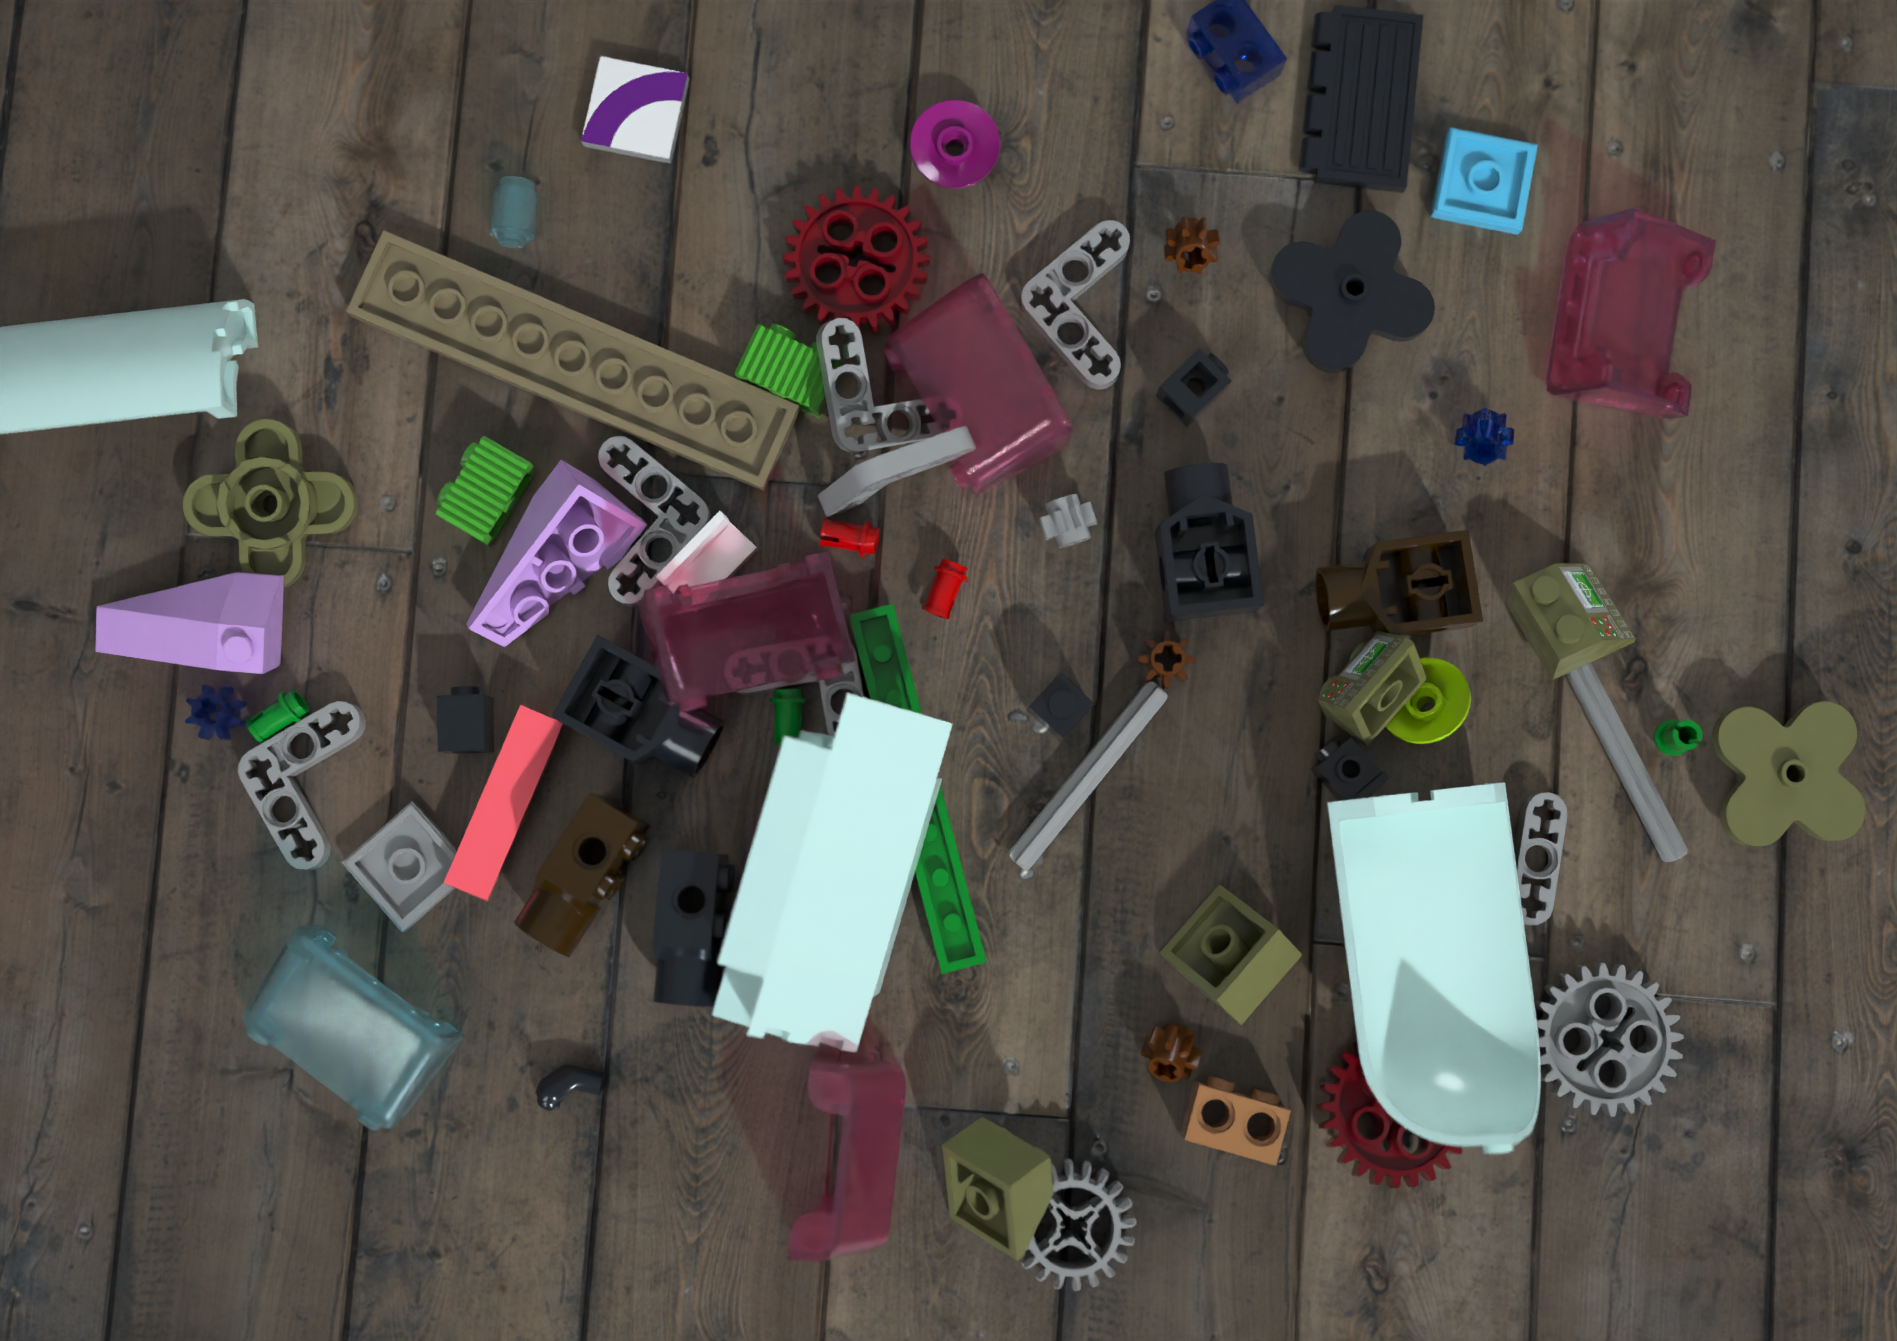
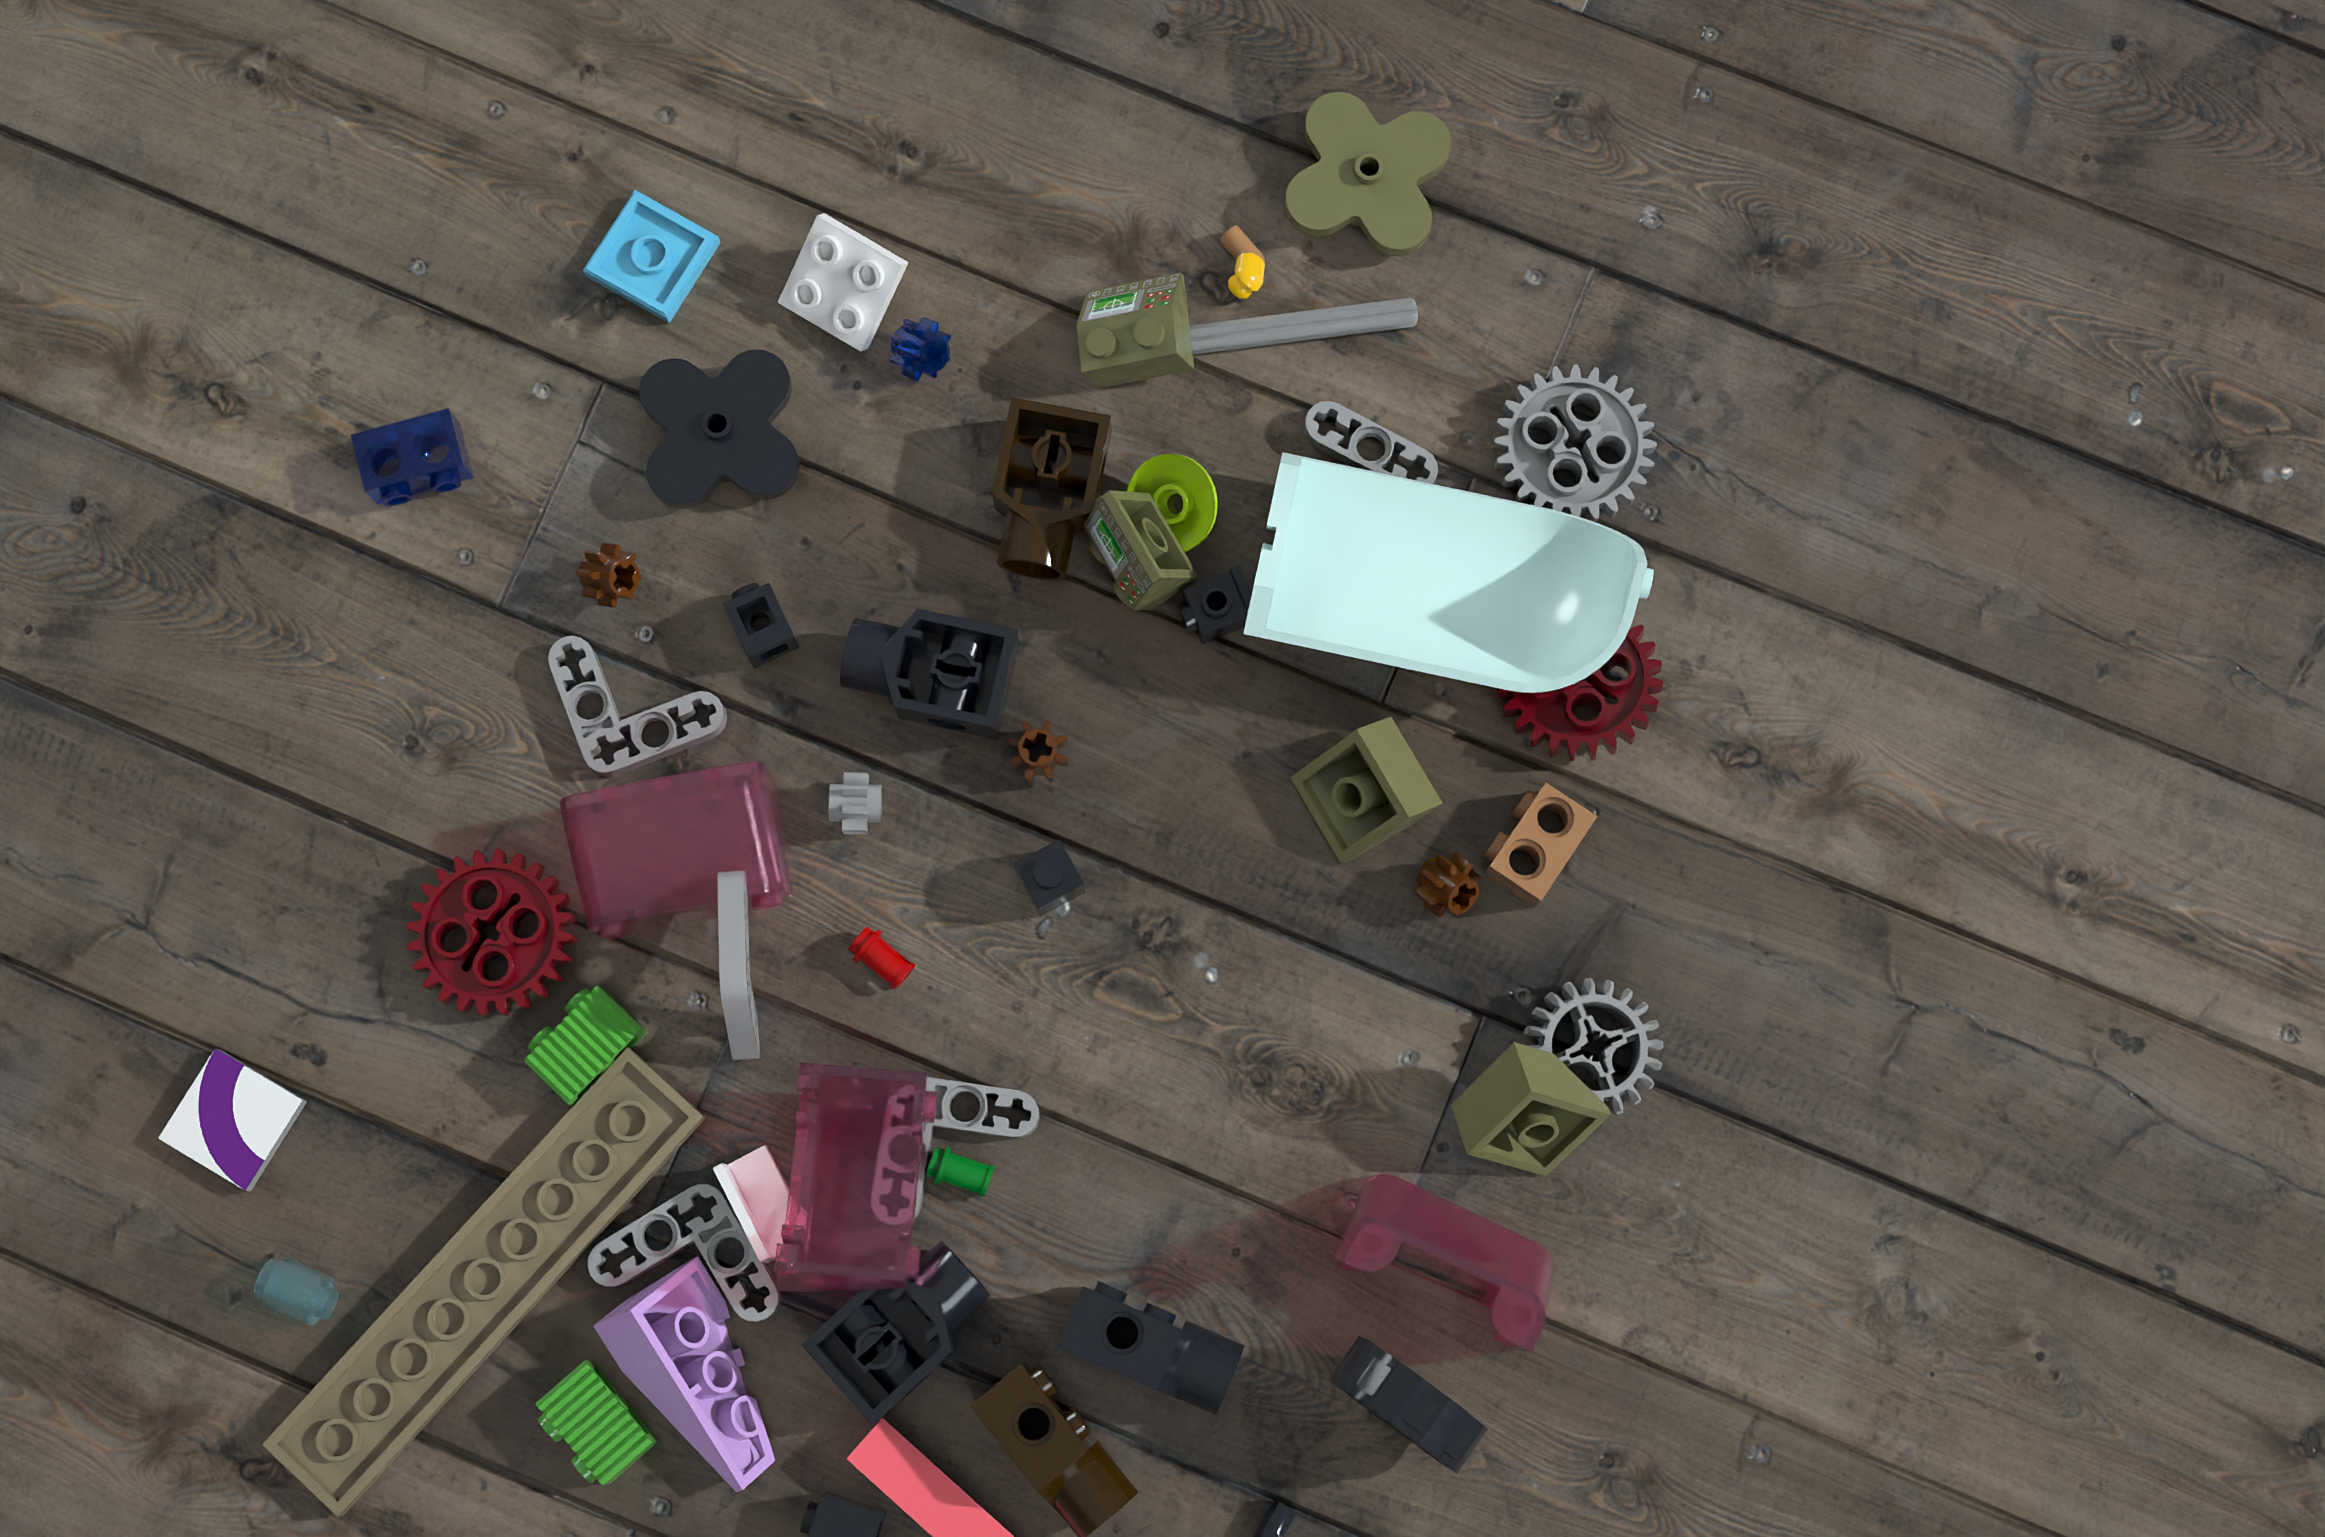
camera: 70 degrees left, 5 degrees down
(711, 1163) = (1408, 1404): none -> black connector
(831, 875) = (1146, 1173): light aqua panel -> none
(850, 536) = (789, 1040): red pin -> none
(861, 405) = (654, 979): light grey beam -> none
(939, 864) = (1083, 1058): green plate -> none
(959, 124) = (387, 769): magenta dish -> none
(1087, 775) = (1131, 875): light grey axle -> none
(1365, 100) = (521, 344): black hinge -> none
(1519, 349) = (842, 282): none -> white plate
(1622, 313) = (817, 157): clear pink windscreen -> none
(1667, 695) = (1249, 263): none -> yellow arm
(1677, 736) = (1294, 268): green pin -> none

